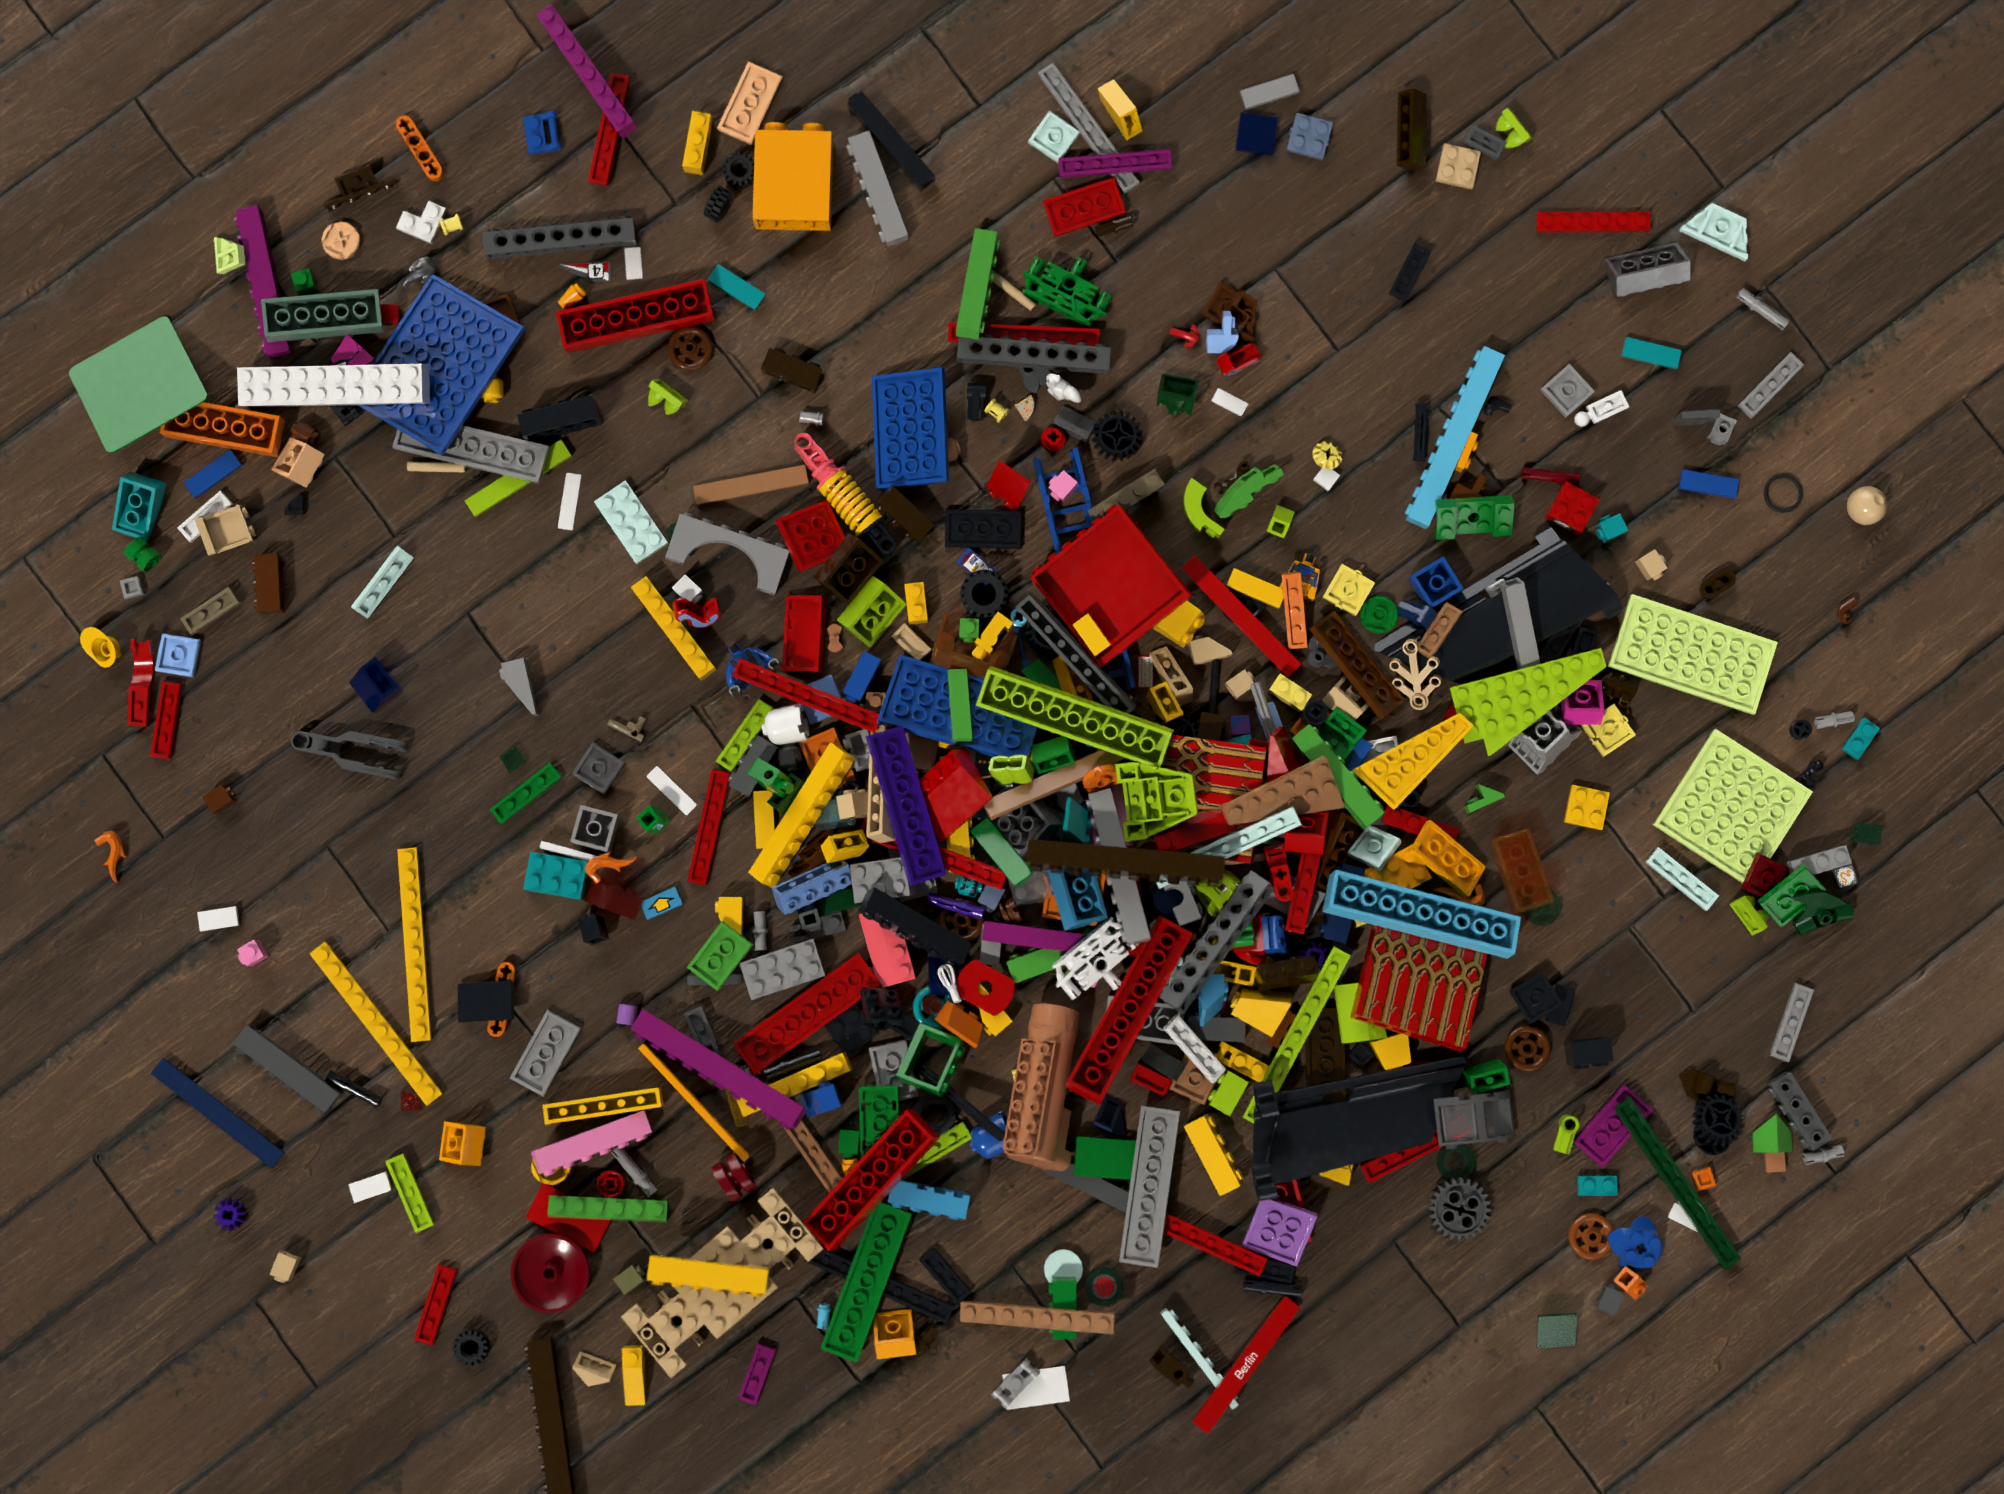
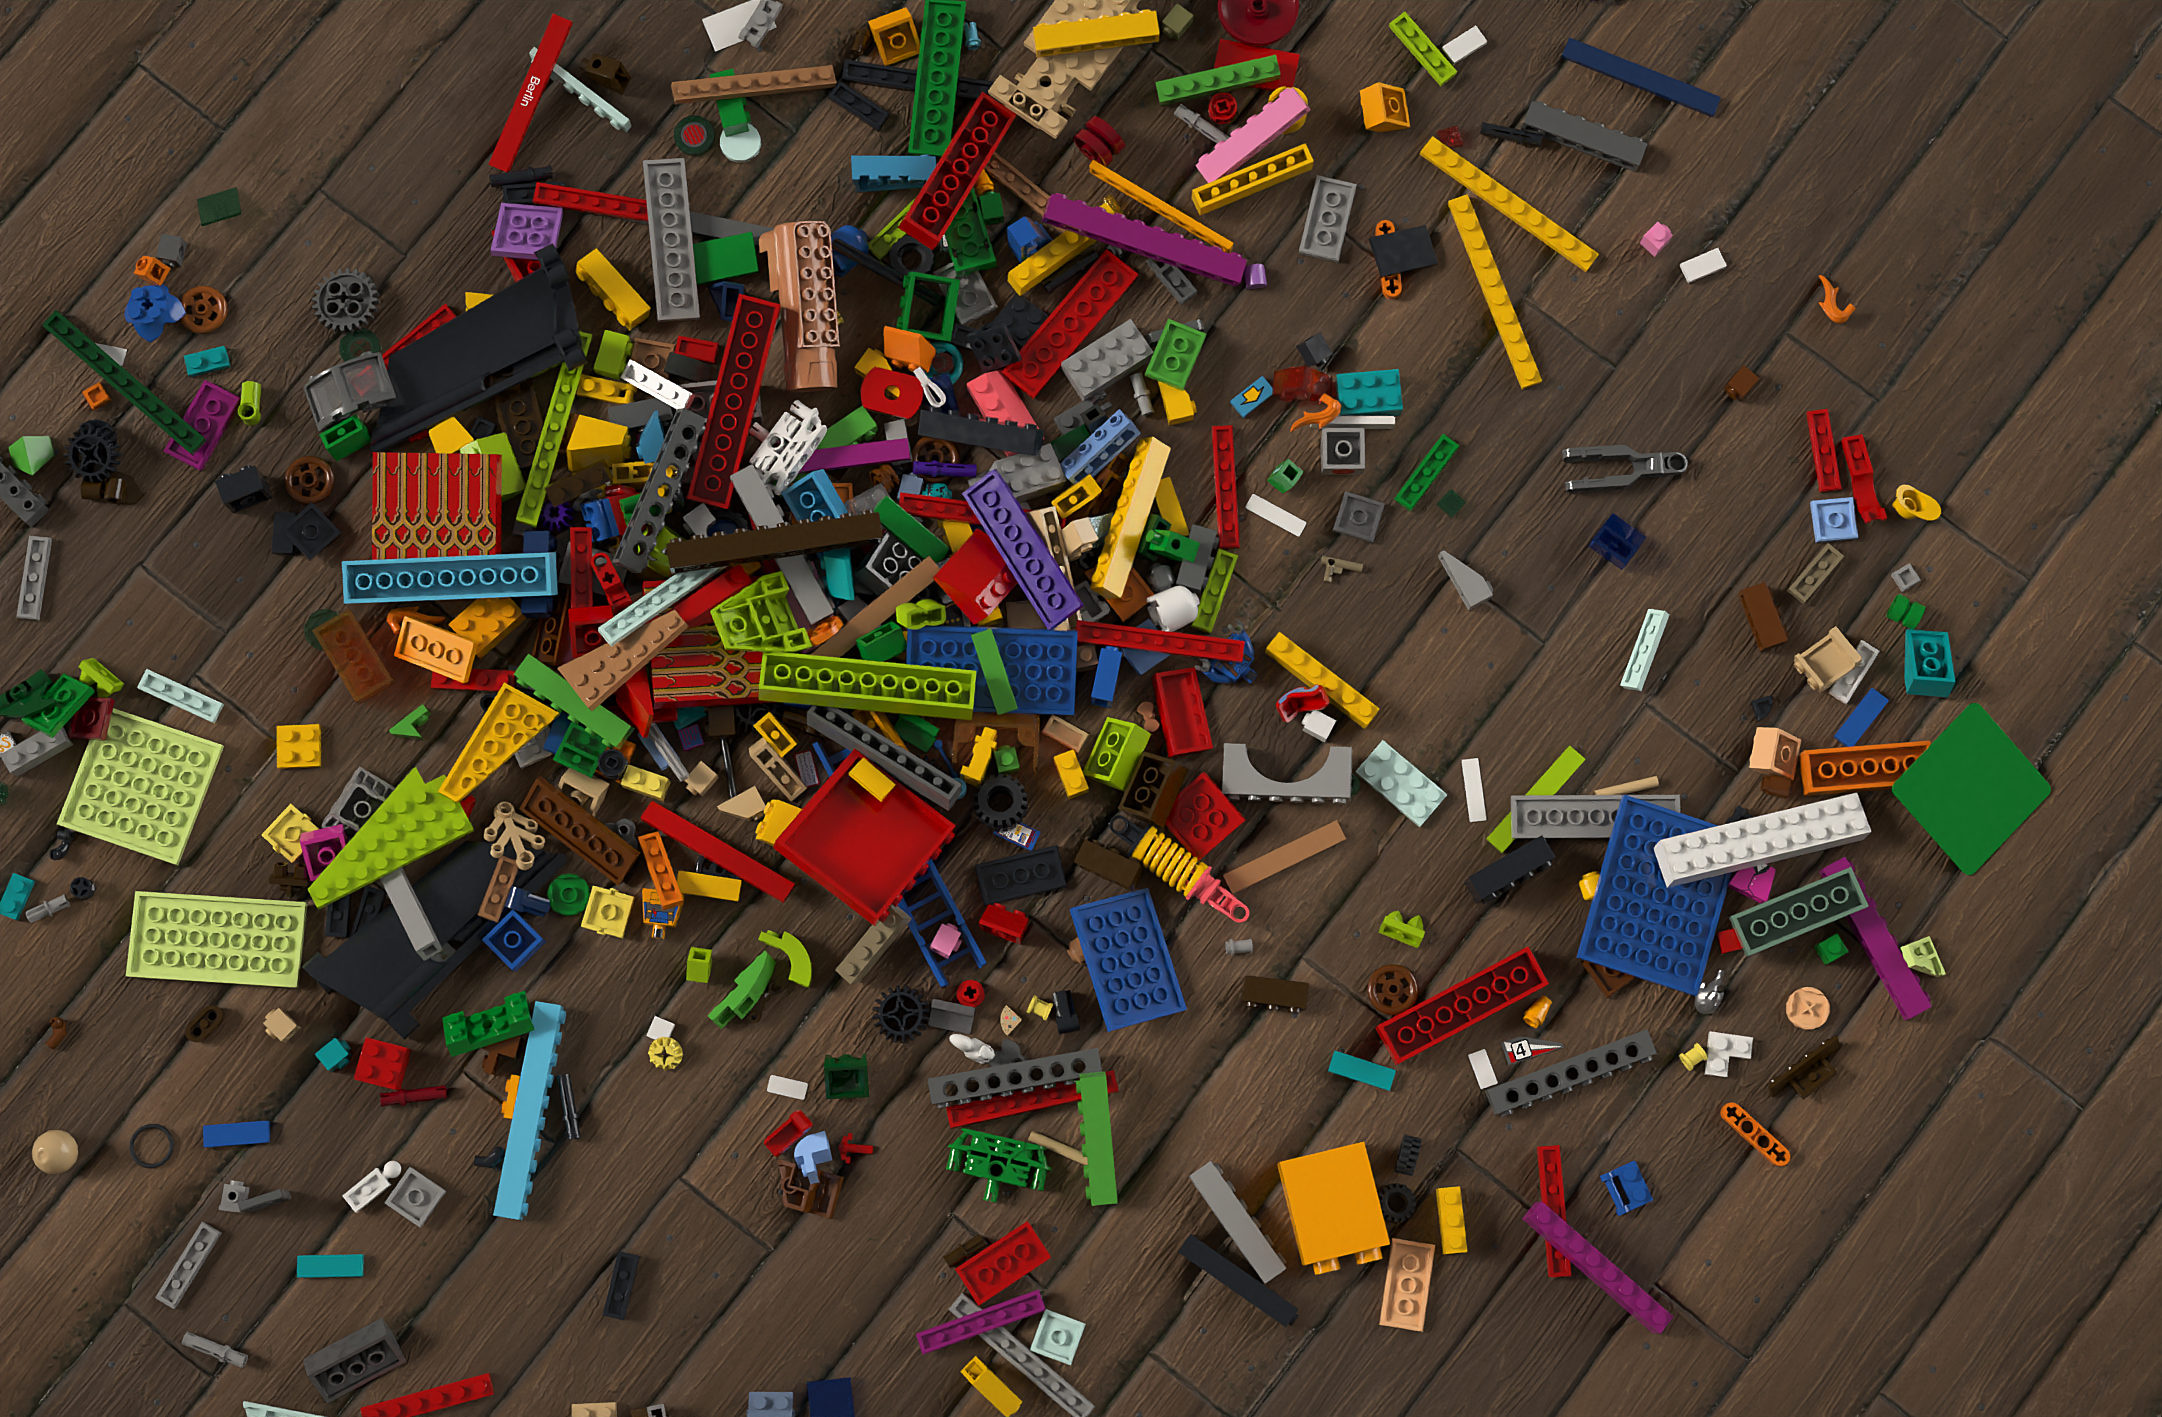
camera: 165 degrees right, 5 degrees down
(1374, 847) = (516, 640): light aqua tile -> none
(1774, 1162) = (24, 428): nougat tile -> none

